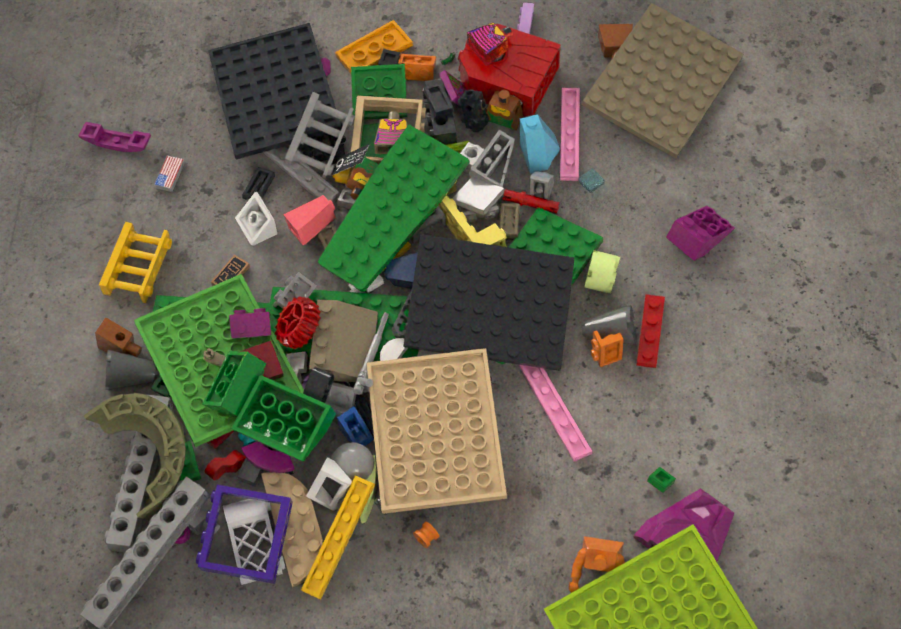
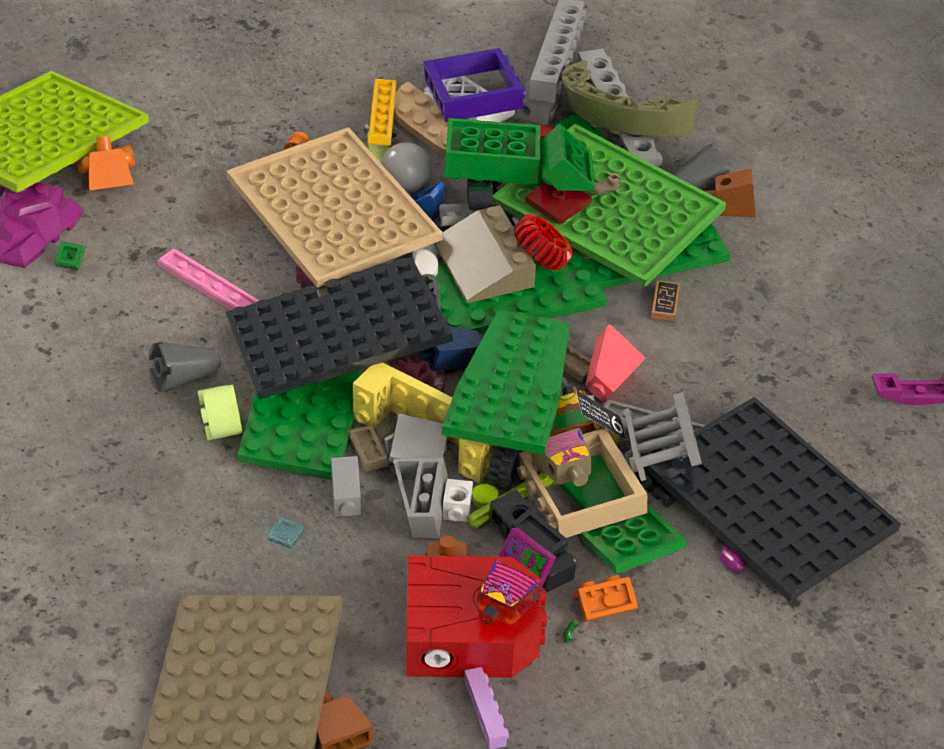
camera: 150 degrees right, 15 degrees down
(123, 251) = (796, 262): yellow fence -> none
(169, 173) = (824, 377): tile -> none
(246, 194) = (708, 412): black tile -> none
(250, 324) = (596, 229): magenta bracket -> none
(256, 220) = (673, 356): white slope -> none
(295, 287) = (573, 282): light grey bracket -> none
(319, 494) = (421, 135): white tile -> none
(362, 379) = (437, 217): light grey piece -> none
(369, 48) = (682, 611): light orange tile -> none
(389, 57) = (646, 586): black plate -> none
(474, 110) = (486, 537): black brick -> none
(532, 201) = (366, 478): red pin -> none
(537, 143) = (379, 537): medium azure slope -> none
(570, 134) = (345, 583): bright pink tile -> none
(608, 349) = (180, 329): orange bracket -> none
(650, 331) = (137, 390): red plate -> none
(699, 232) = (114, 507): magenta slope -> none

